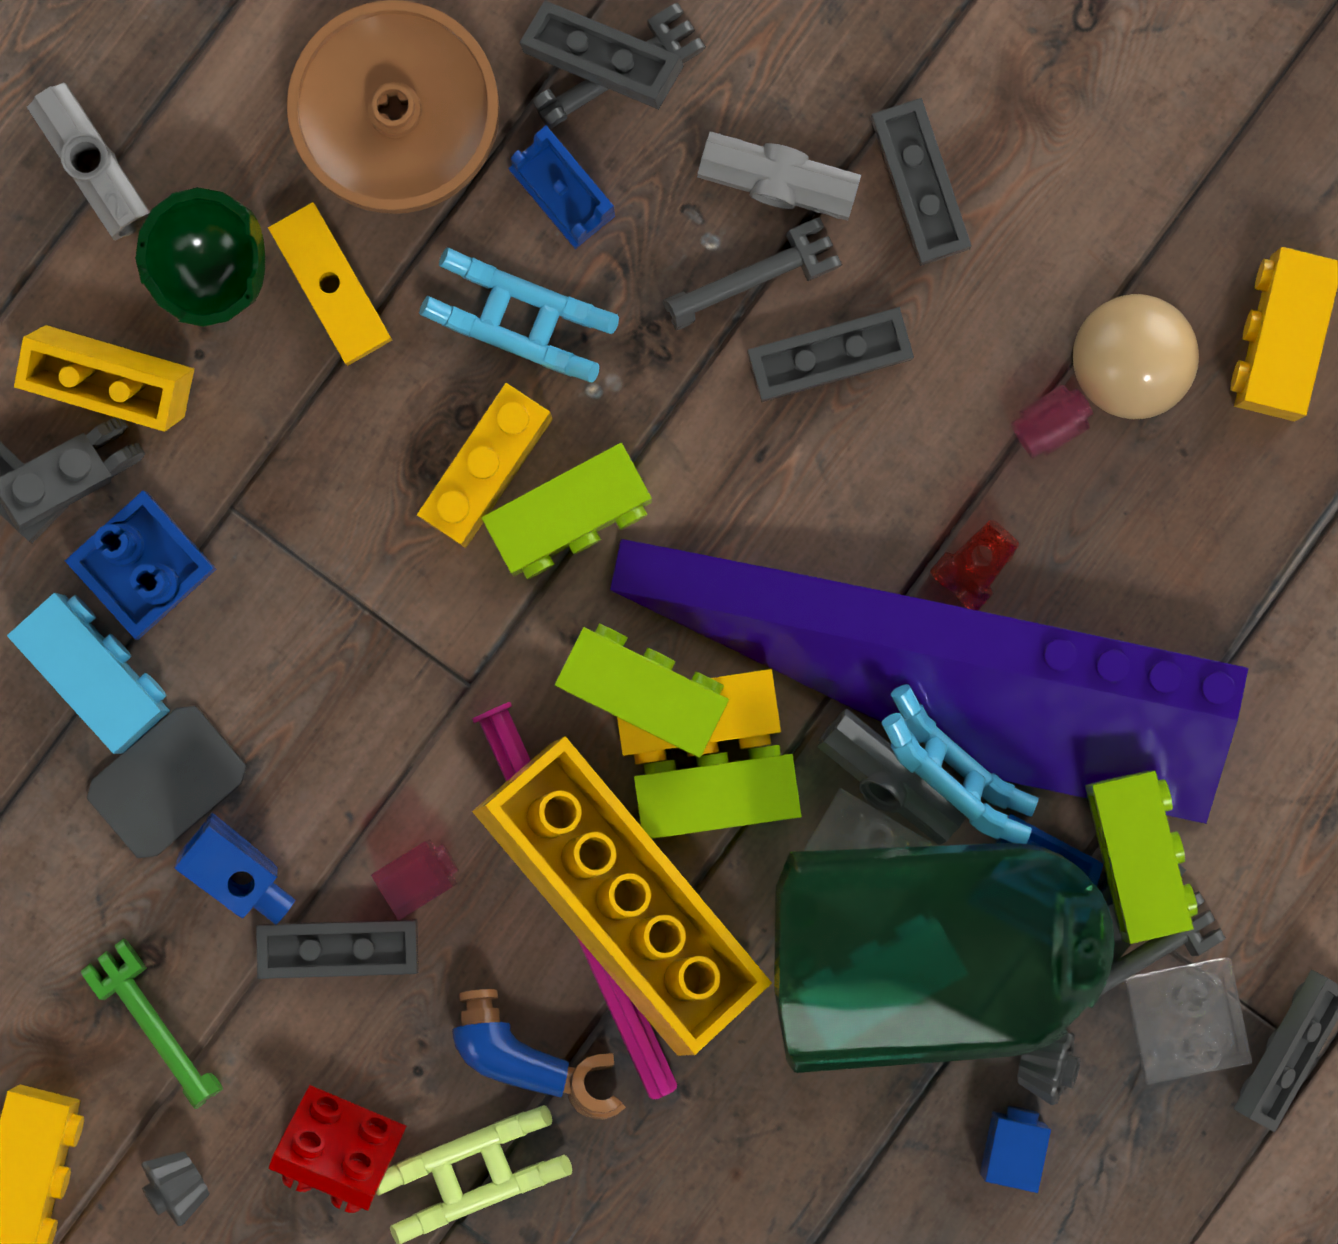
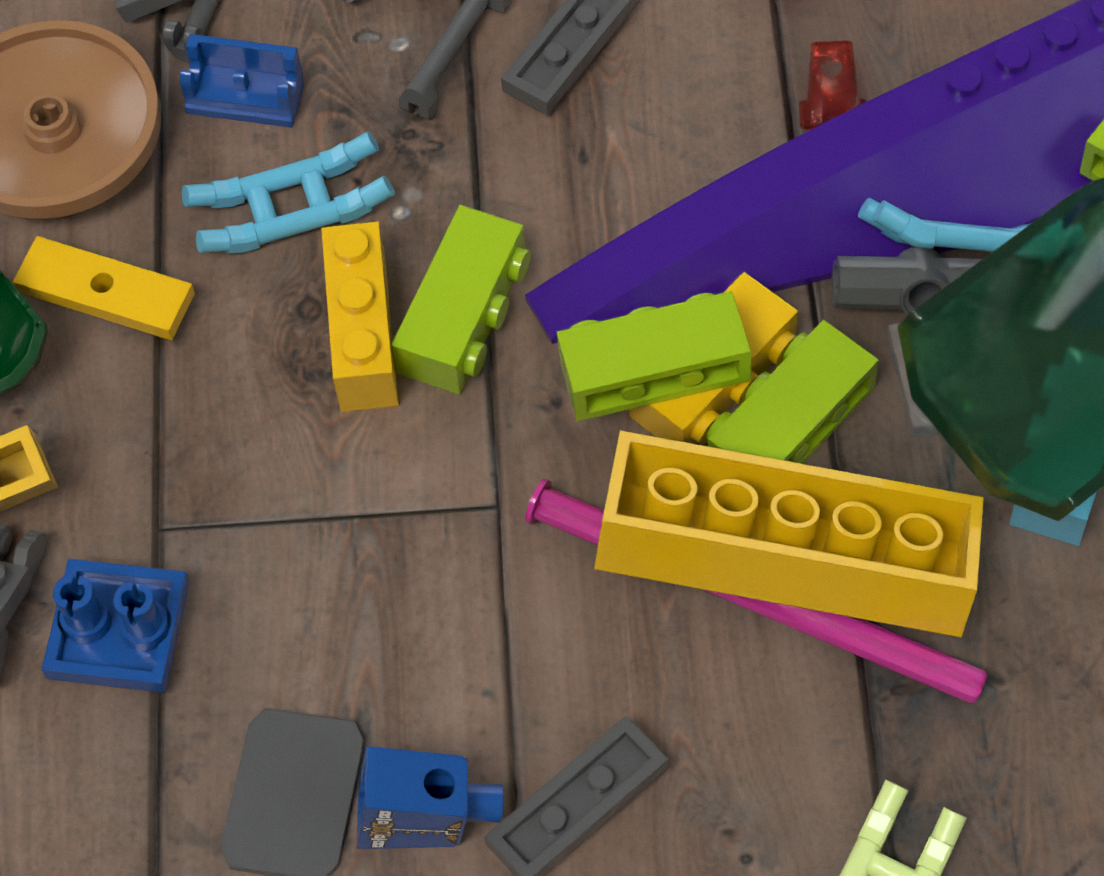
camera: 40 degrees left, 25 degrees down
(90, 671) = (142, 746): medium azure brick -> none
(416, 877) = (593, 682): clear pink brick -> none
(497, 1054) = (806, 768): blue piece -> none

